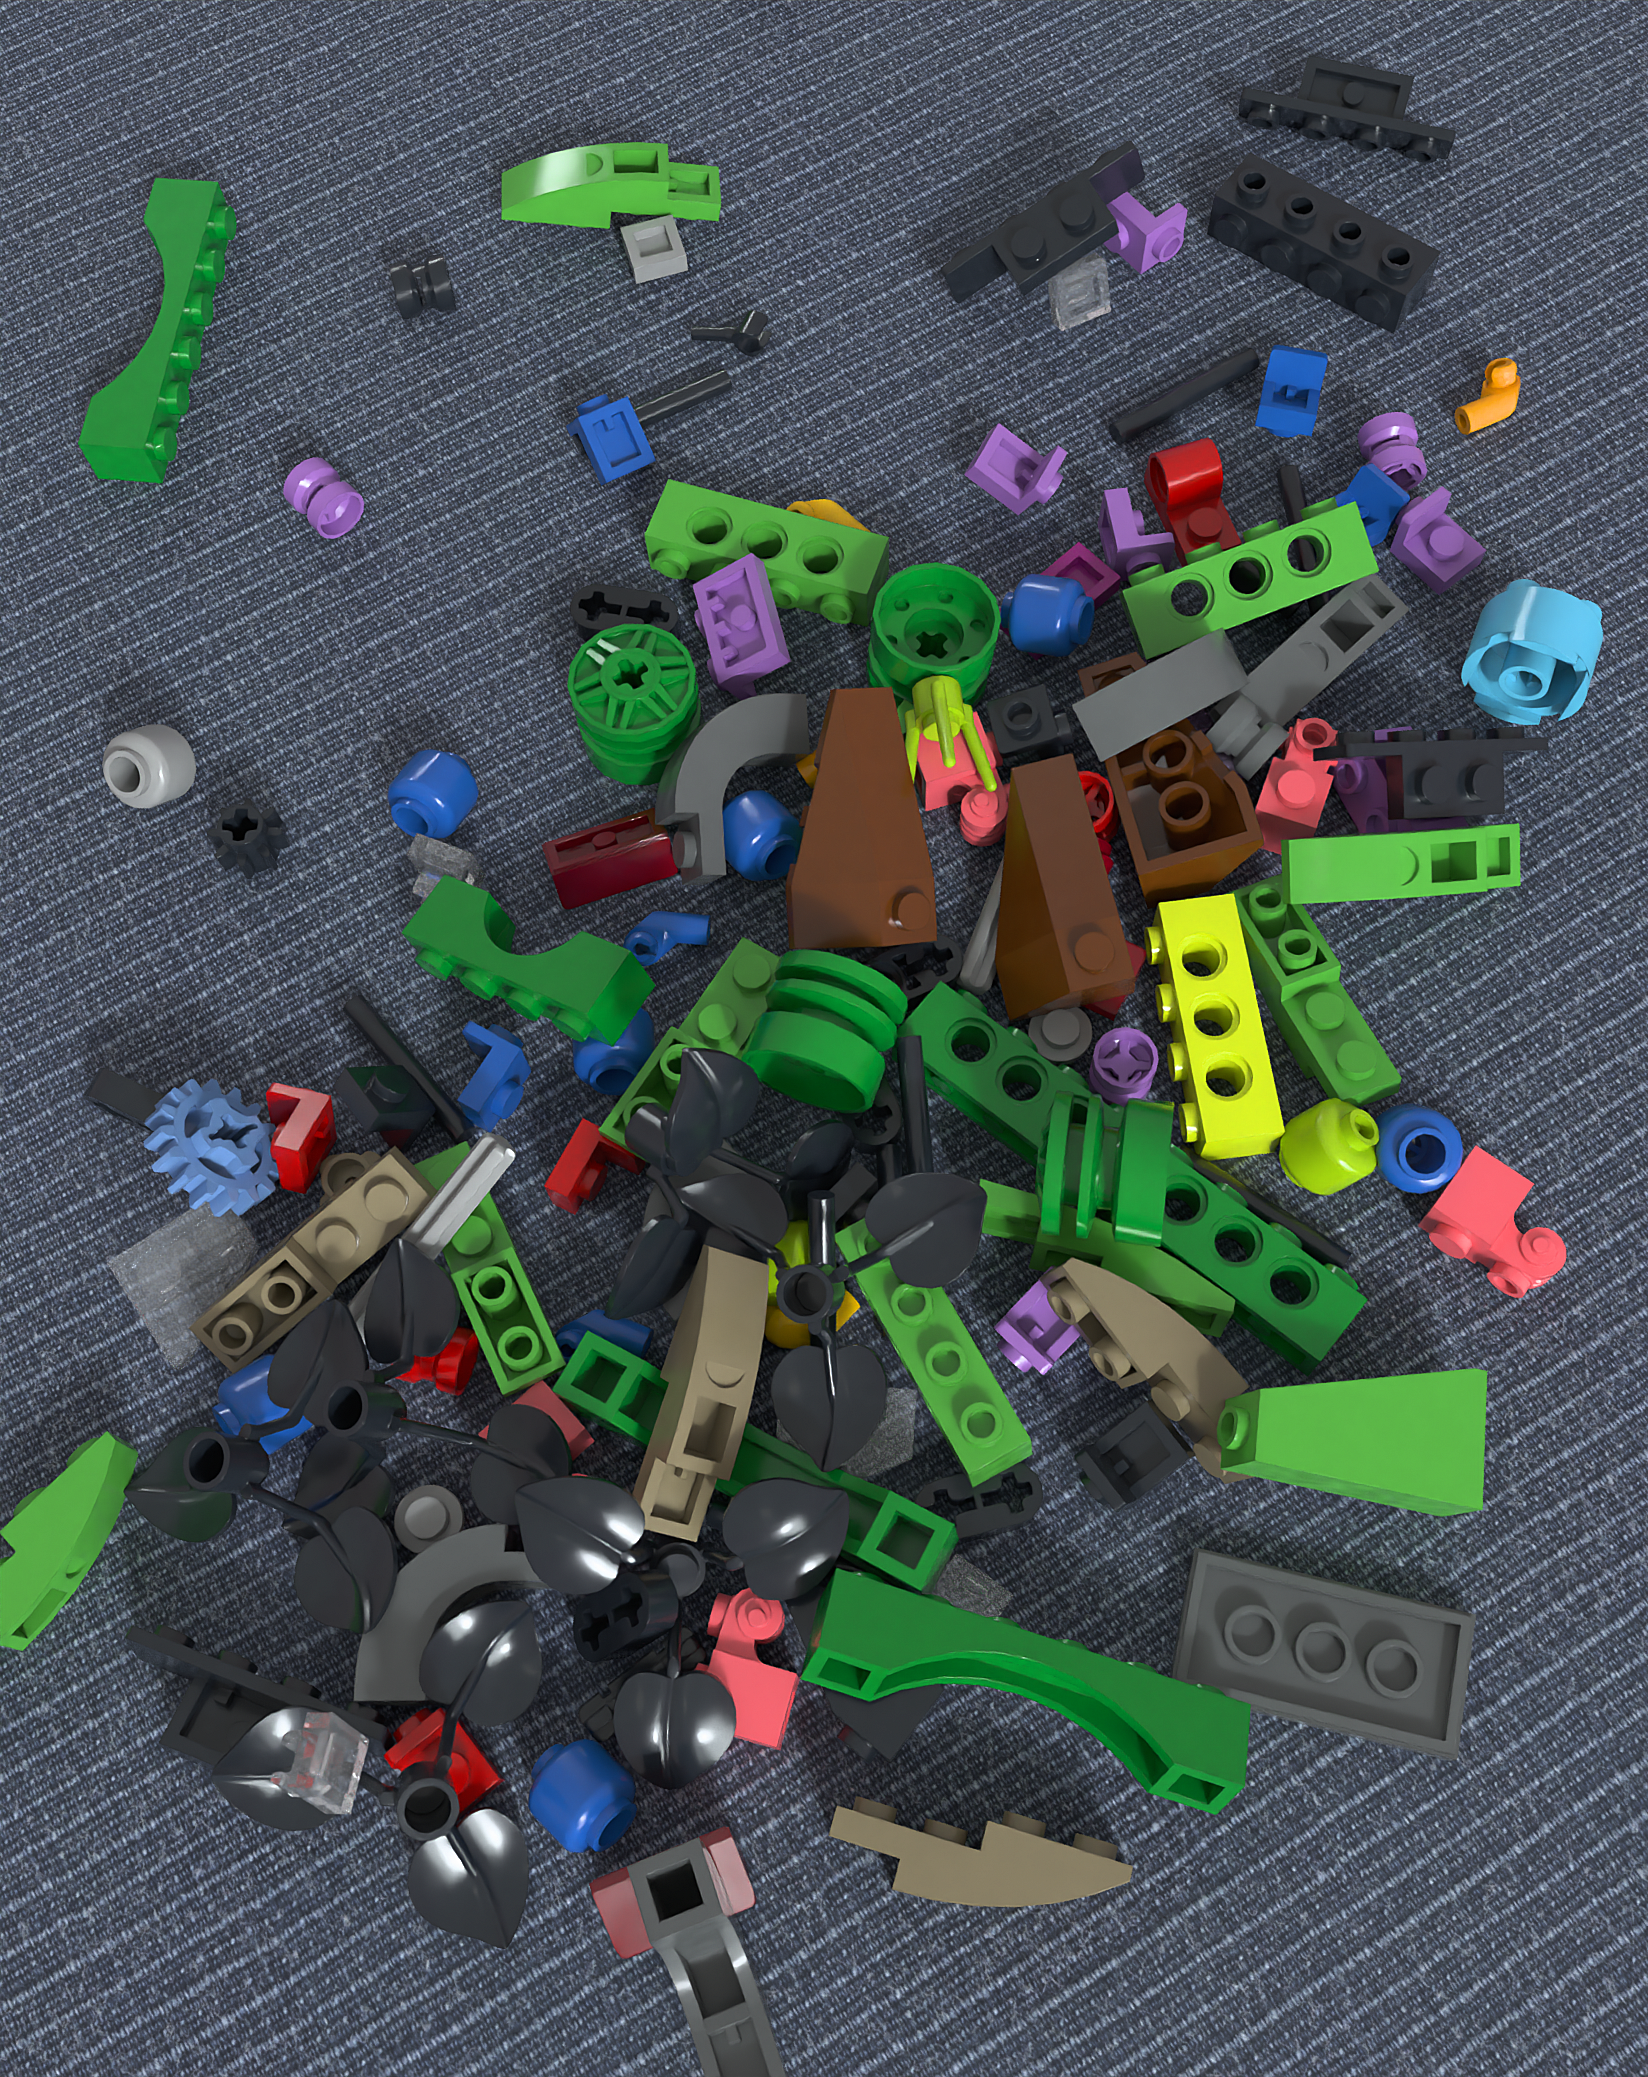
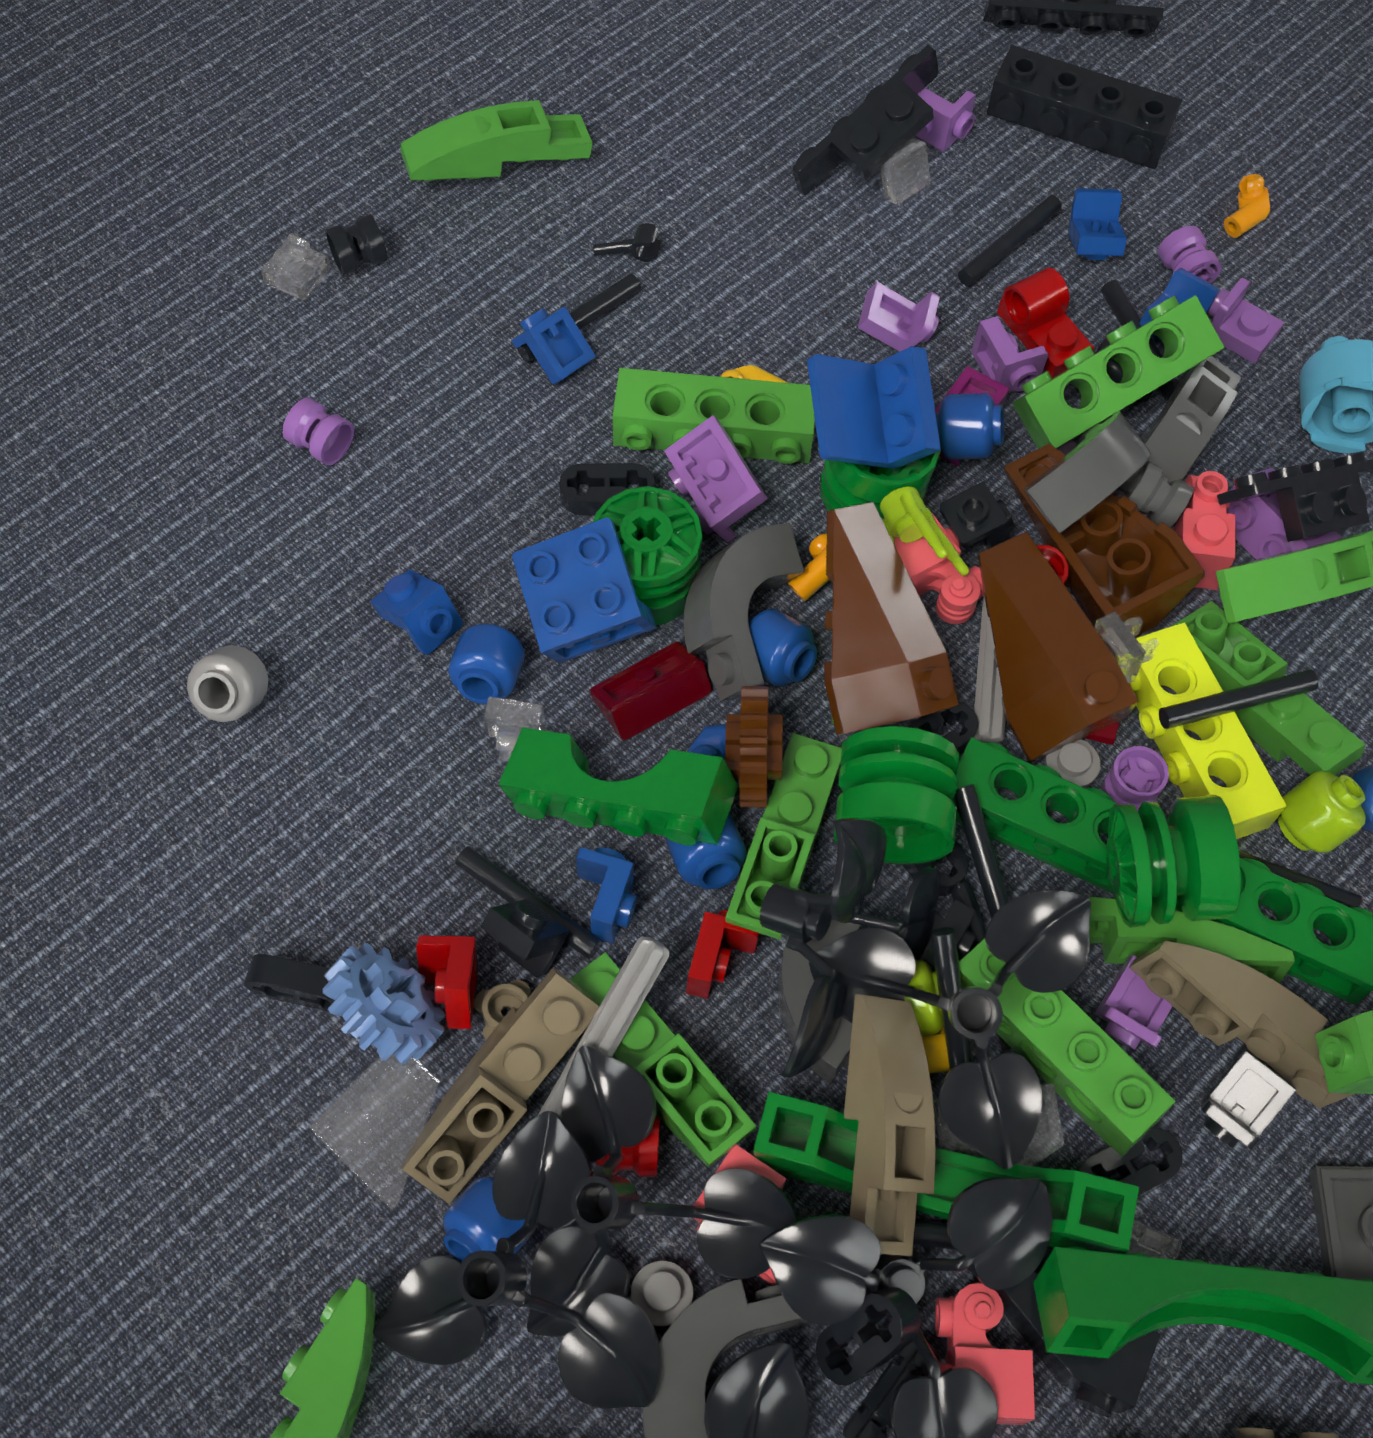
camera: 20 degrees left, 5 degrees down
(137, 415) = (129, 389): green arch -> none
(248, 838) = (330, 715): black gear -> none
(353, 304) = (295, 268): none -> clear tile
(378, 721) = (418, 608): none -> blue bracket
(545, 734) = (580, 592): none -> blue bracket
(622, 1333) = (754, 1093): blue arm -> none
(654, 249) = (544, 186): light grey plate -> none
(685, 944) = (754, 746): none -> reddish brown gear
(918, 577) = (874, 411): none -> blue bracket
(1140, 912) = (1123, 645): none -> clear tile
(1265, 995) = (1238, 699): none -> black bar

